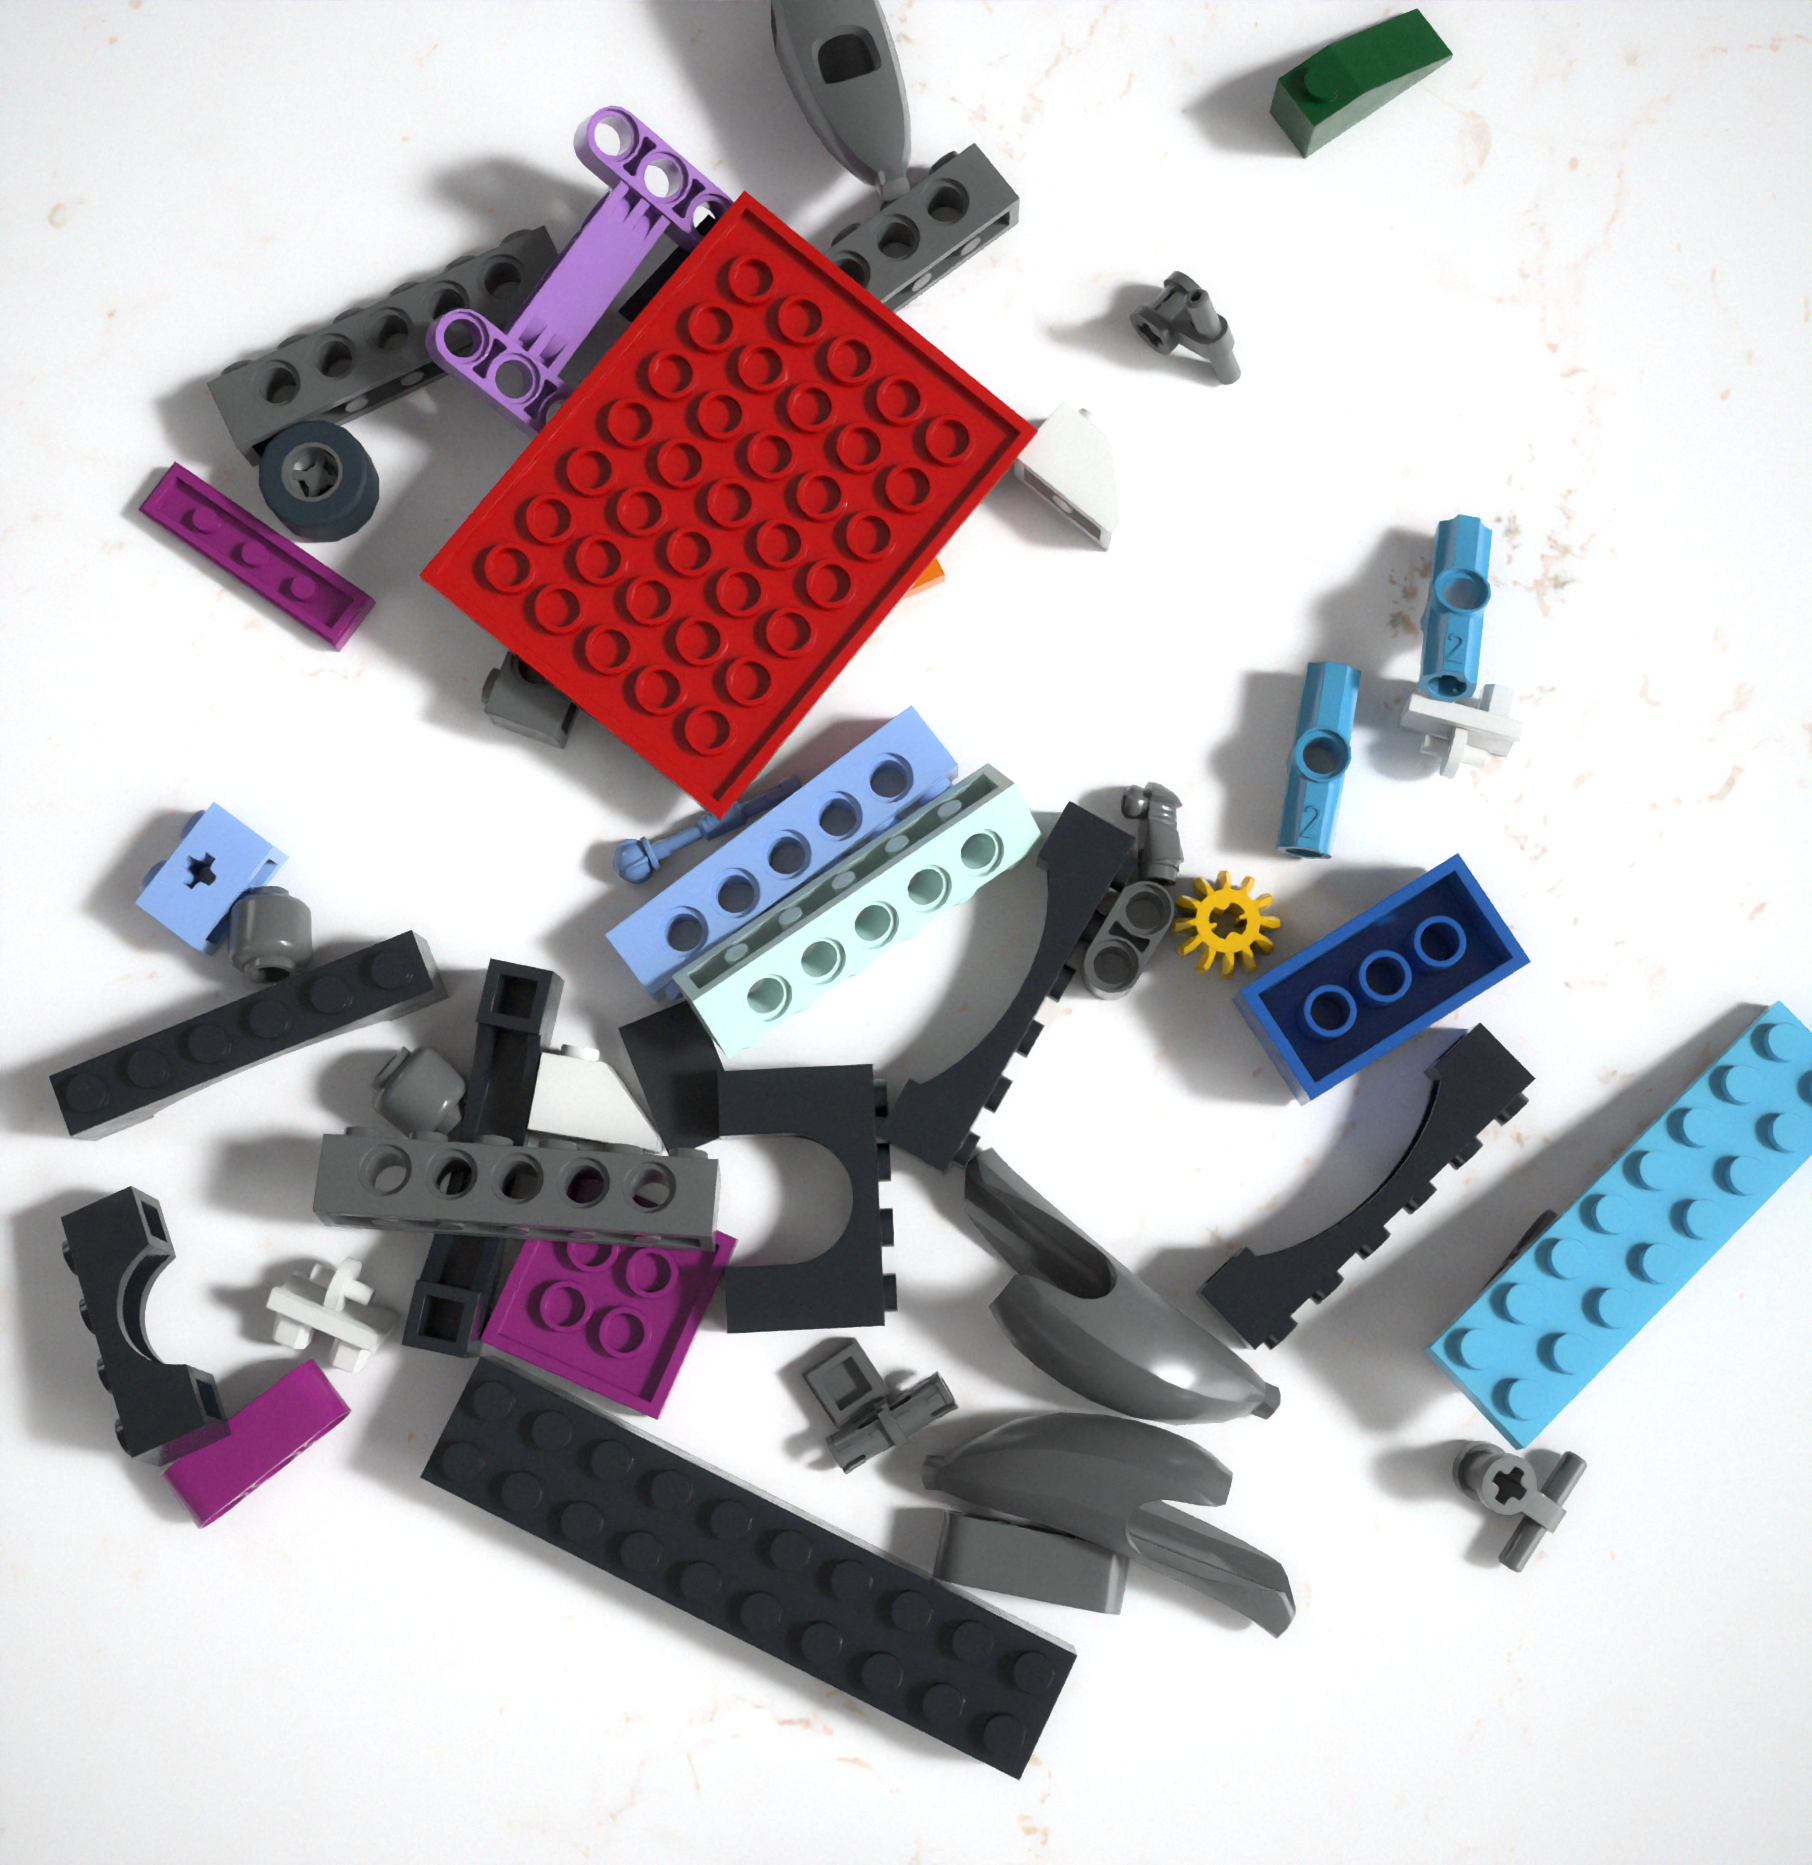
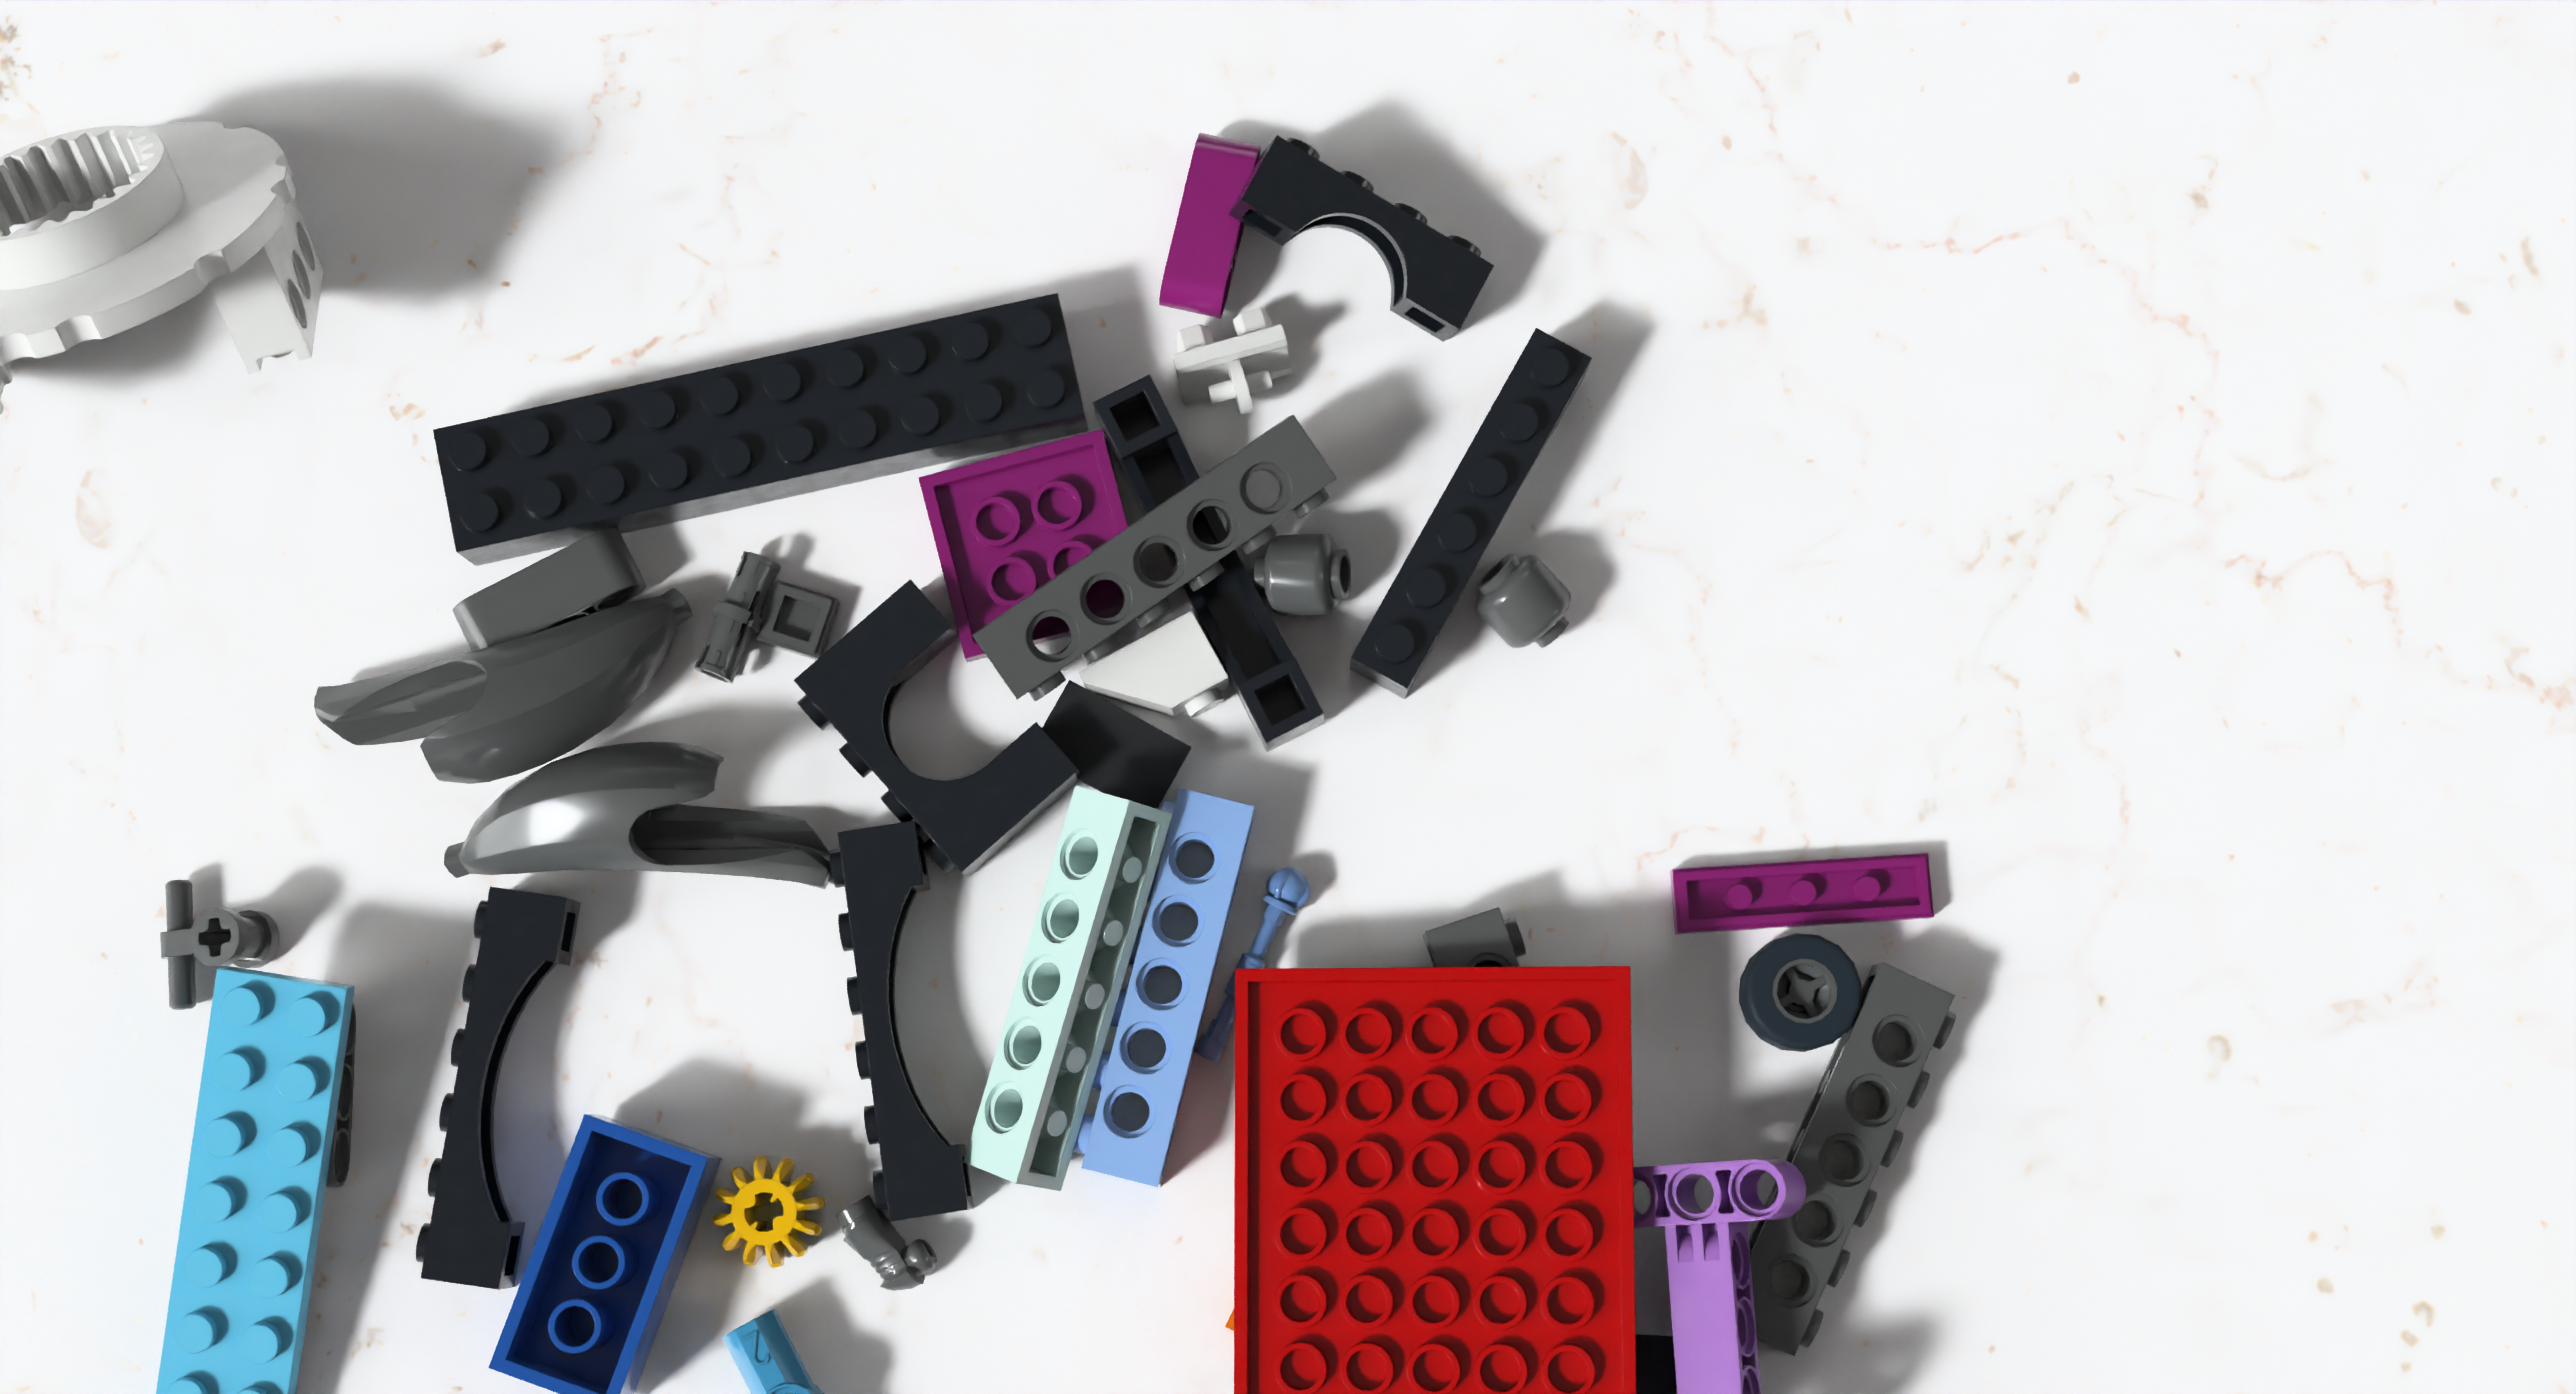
camera: 135 degrees right, 0 degrees up
(180, 897) = (1593, 641): light blue brick -> none
(1126, 940) = (826, 1138): dark grey beam -> none

